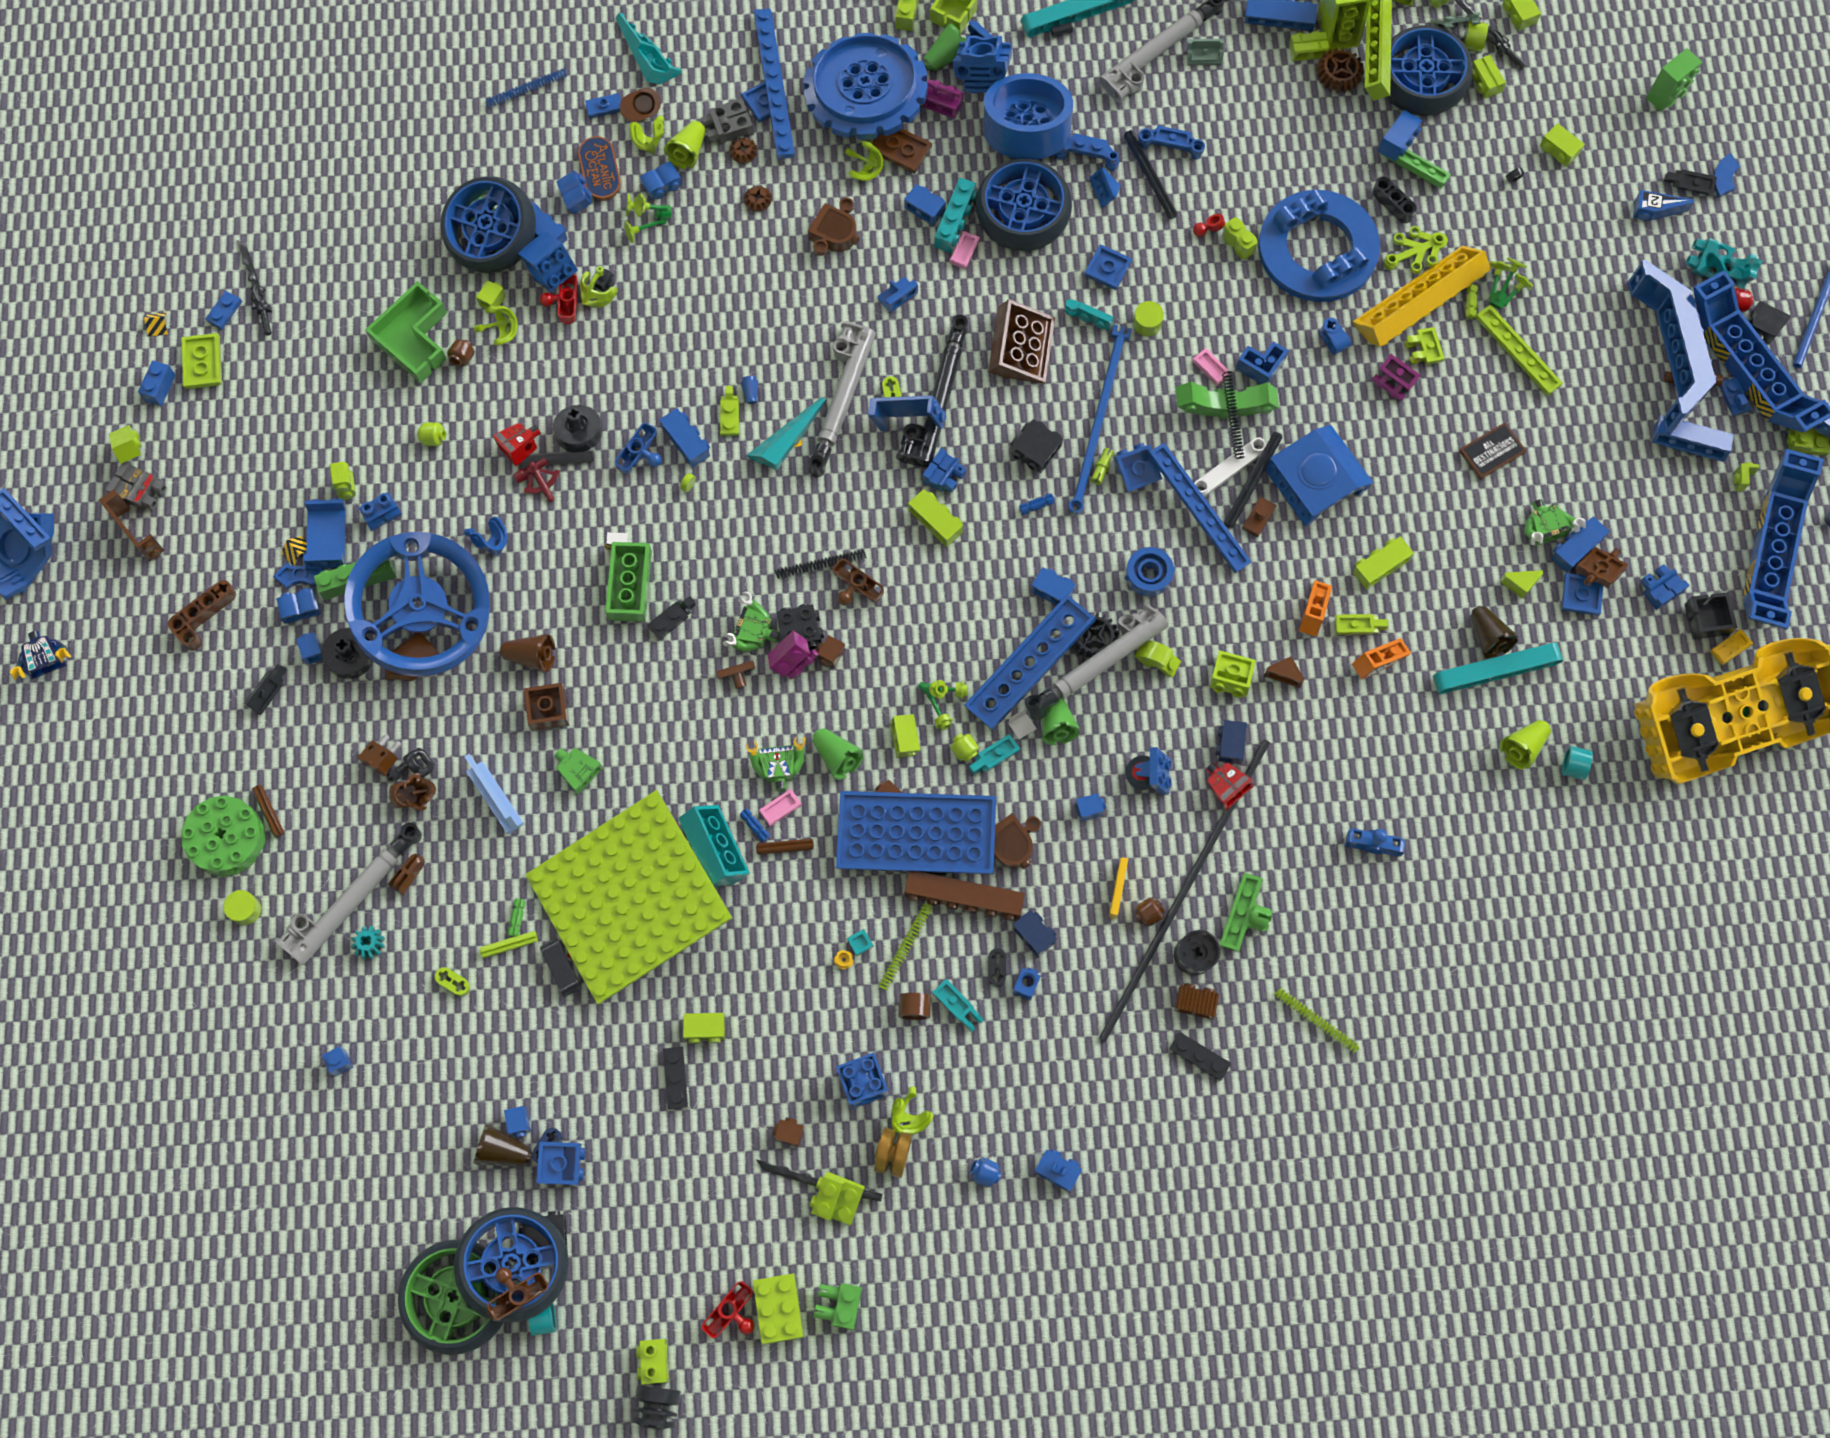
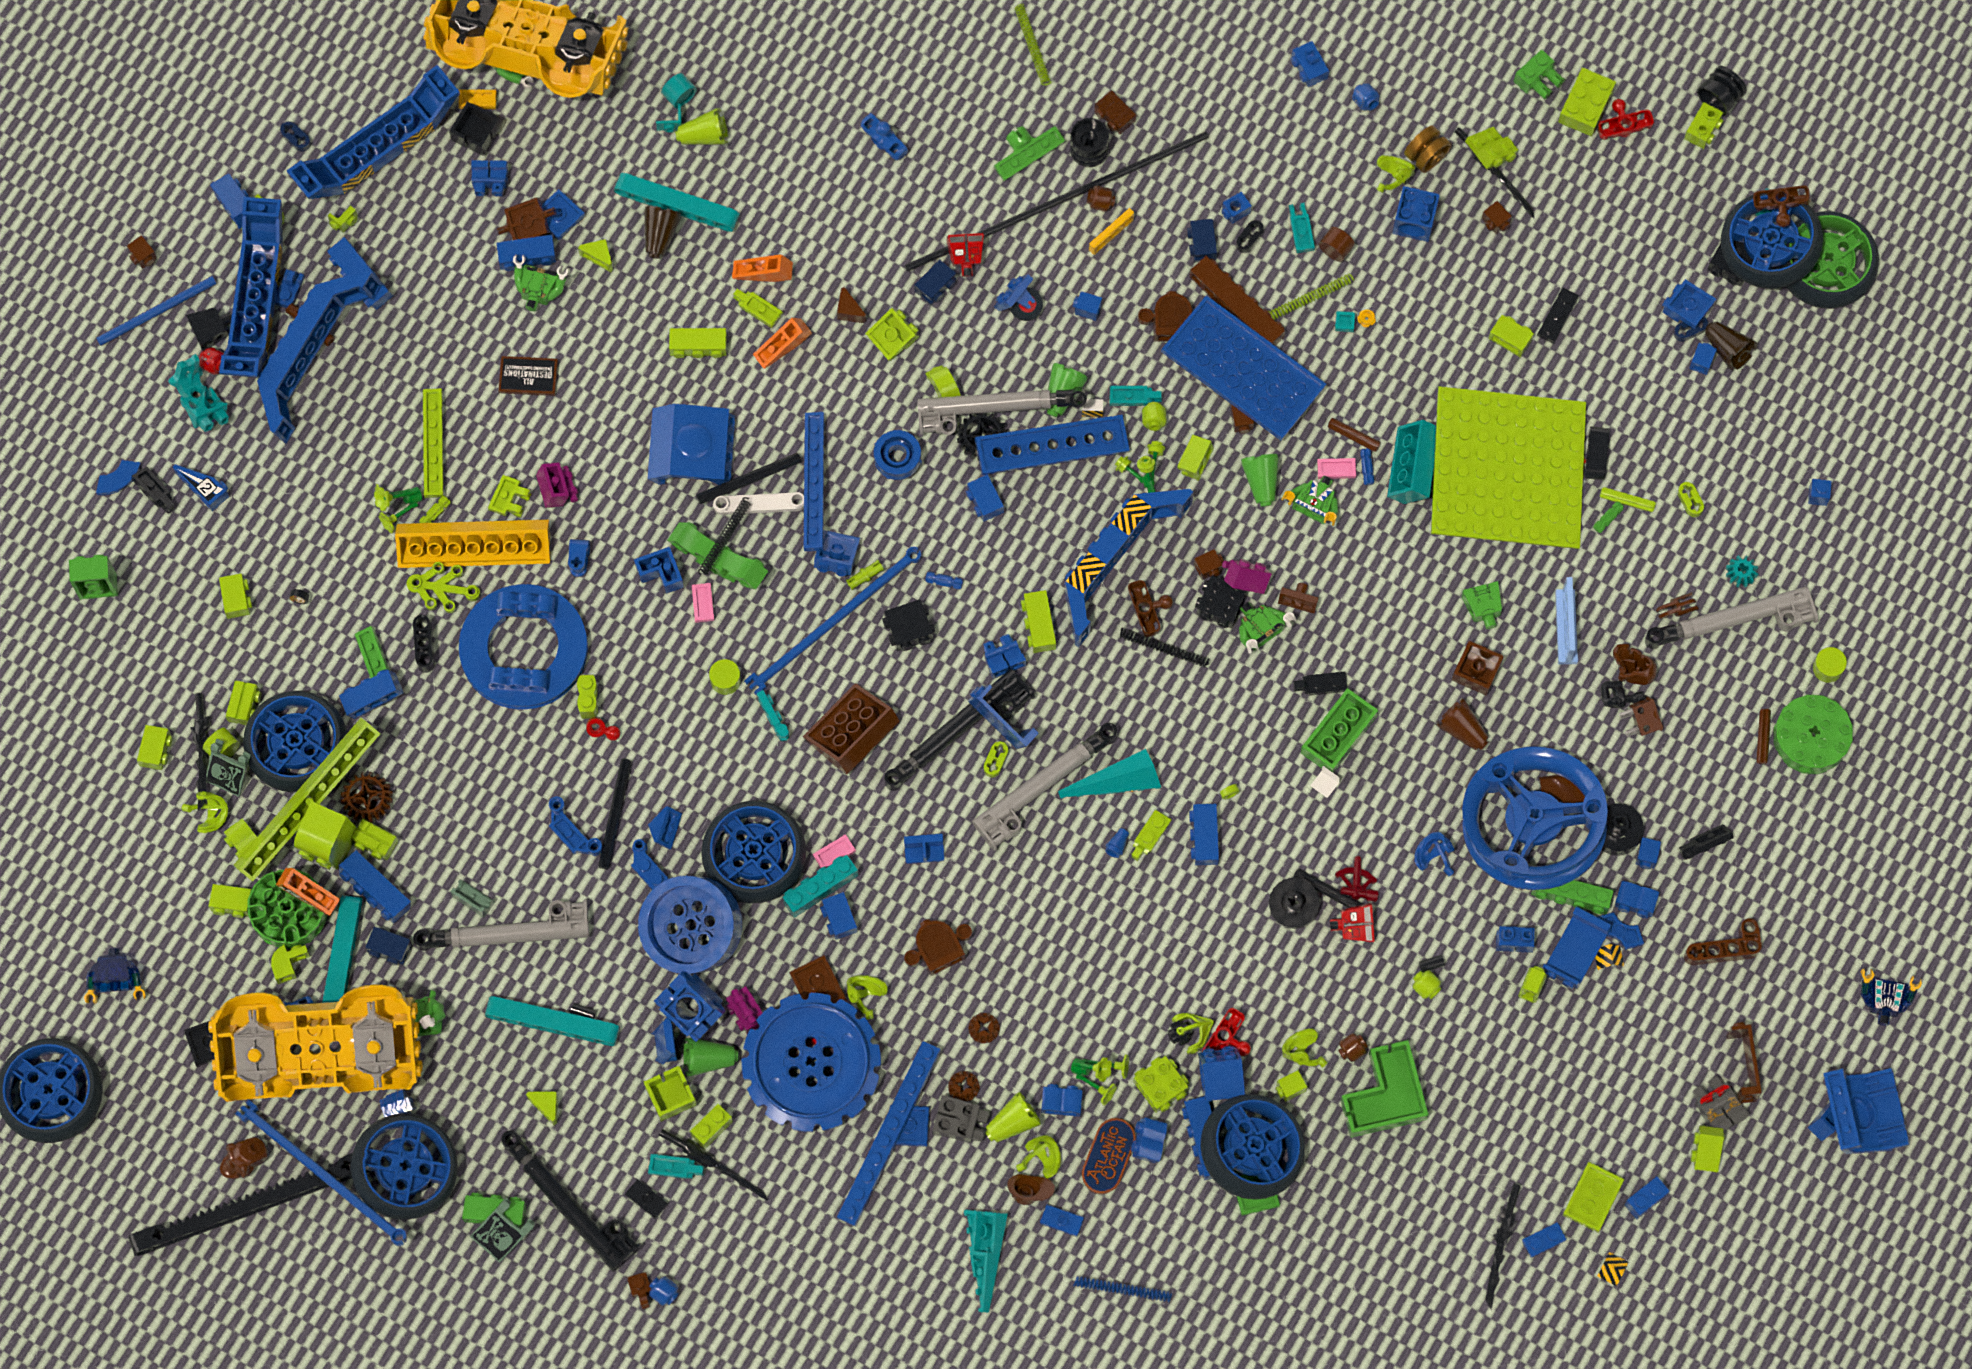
camera: 145 degrees left, 0 degrees up
(438, 455) = (1431, 963): none -> black piece
(593, 237) = (1161, 1084): none -> lime brick
(631, 457) = (1244, 856): blue piece -> none
(920, 605) = (1111, 547): none -> blue slope
(1108, 267) = (721, 749): blue plate -> none
(1200, 1056) = (1141, 76): black plate -> none
(1259, 517) = (766, 448): reddish brown tile -> none
(1553, 738) = (671, 125): none -> teal bracket

